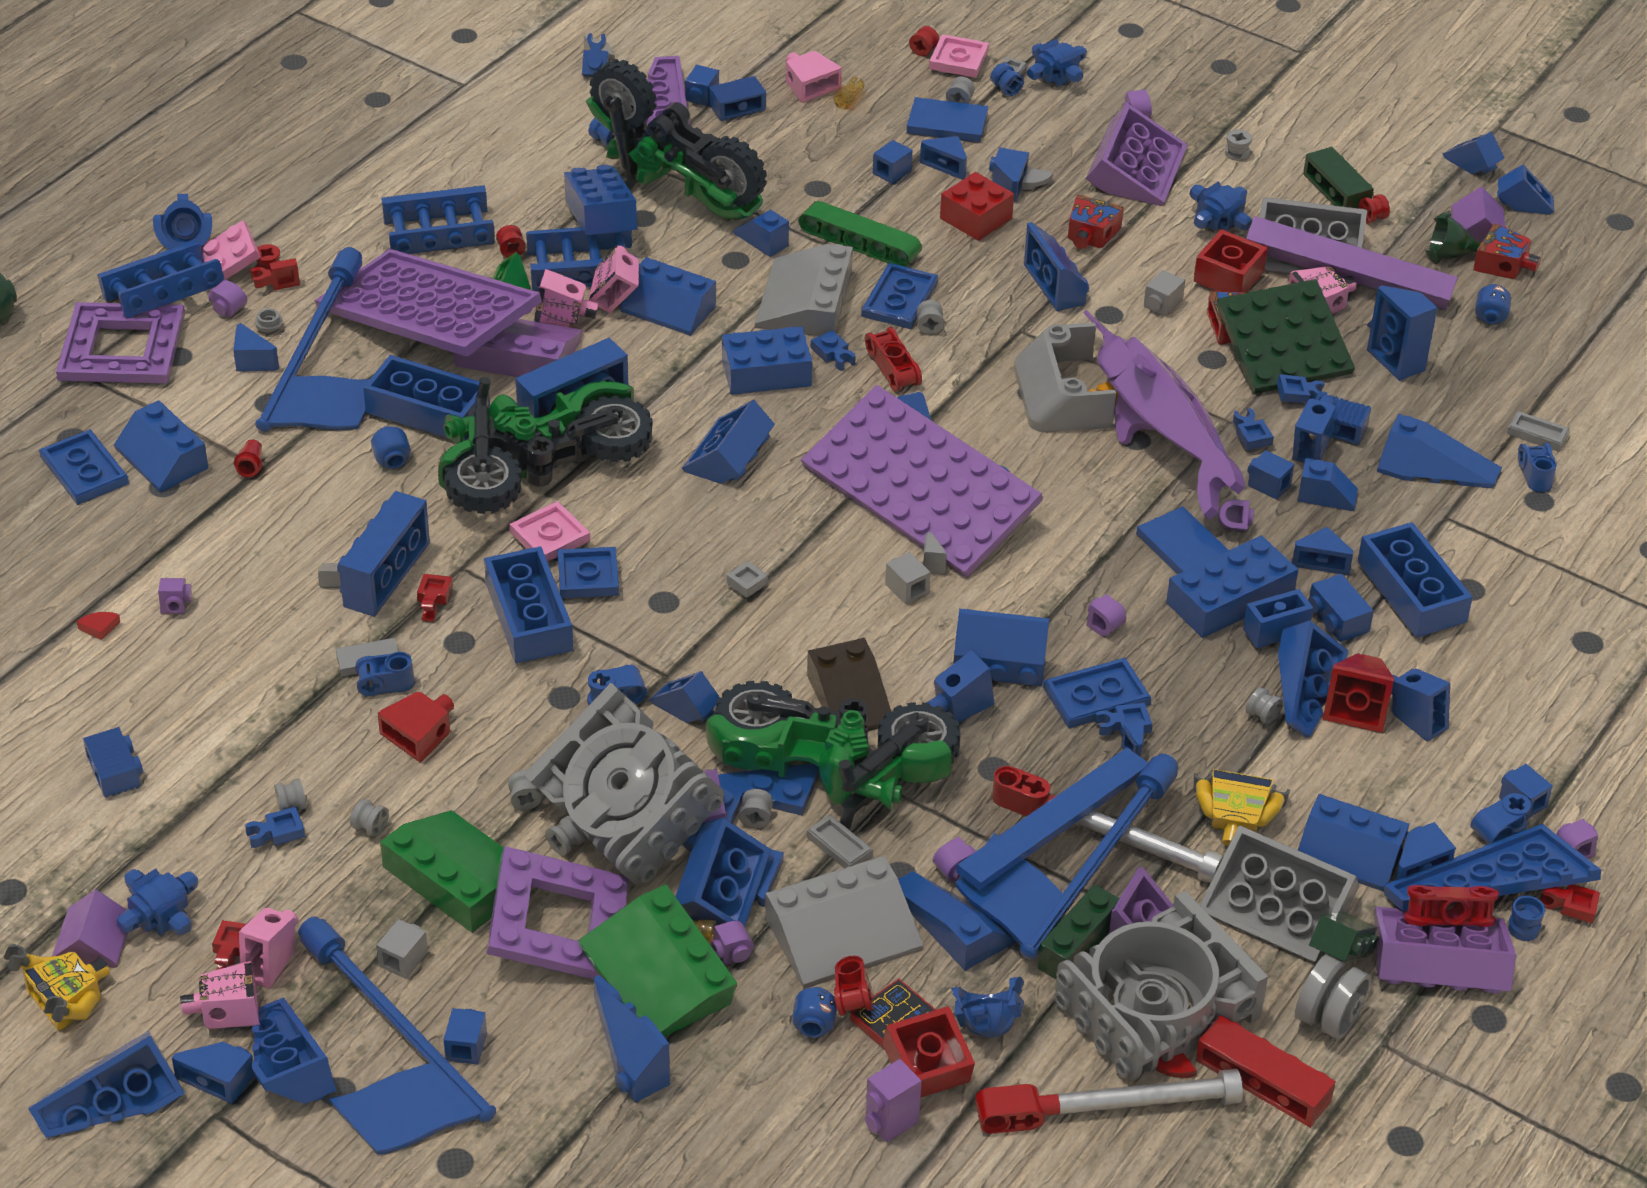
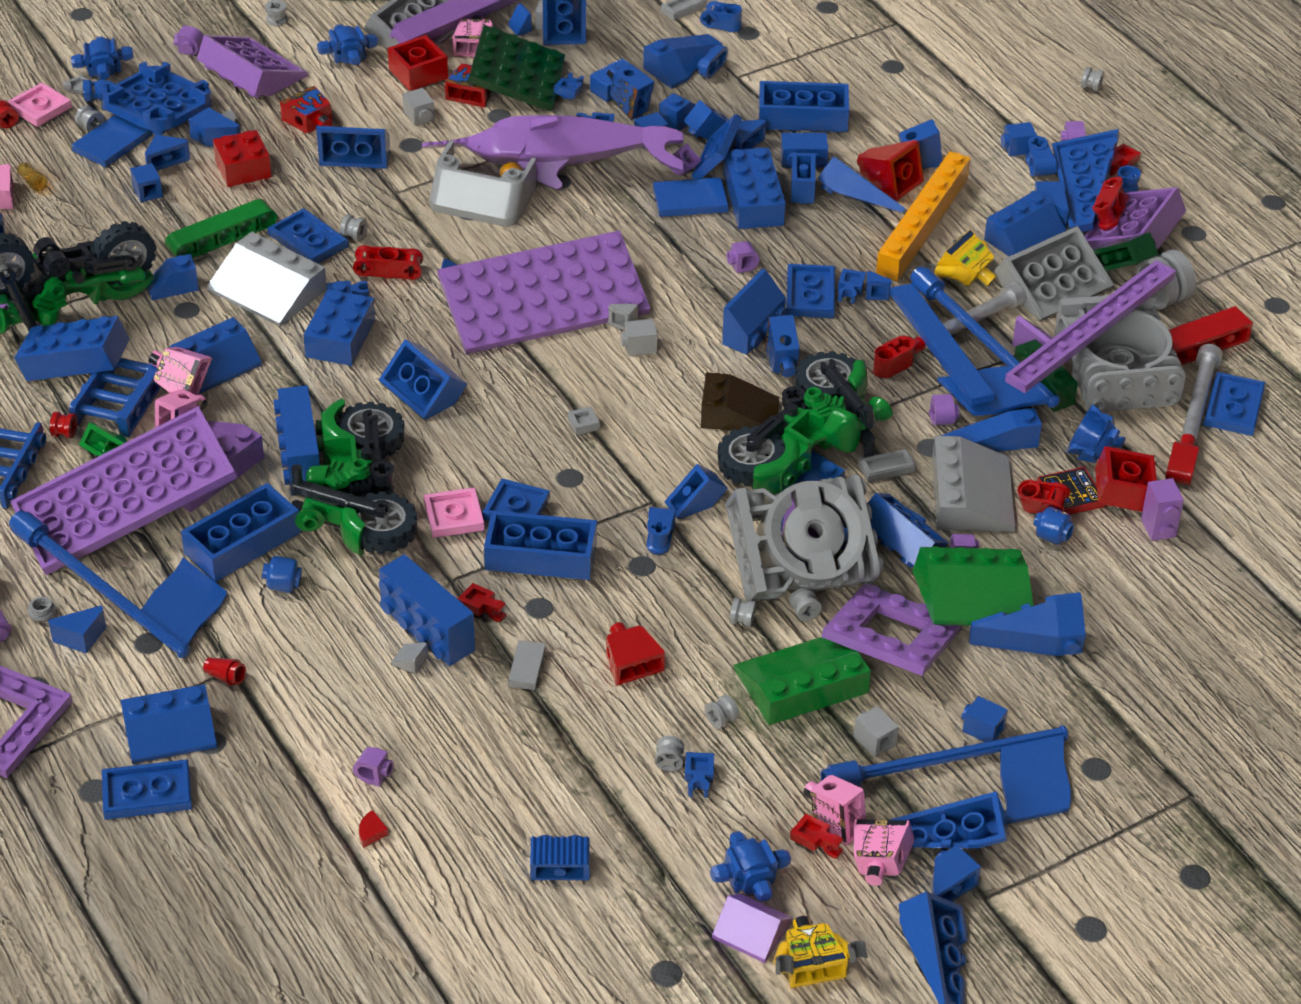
camera: 65 degrees left, 0 degrees up
(388, 673) = (559, 655): blue piece -> none
(1023, 118) = (156, 98): none -> blue plate
(1145, 927) = (1089, 326): none -> medium lavender plate
(1168, 1139) = (1234, 403): none -> blue tile
(1264, 705) = (876, 217): light grey wheel -> none
(1272, 530) = (717, 147): none -> blue tile
(1299, 744) = (923, 216): none -> light orange brick
(1323, 509) = (704, 120): none -> blue slope
(1444, 483) = (712, 61): none -> blue plate

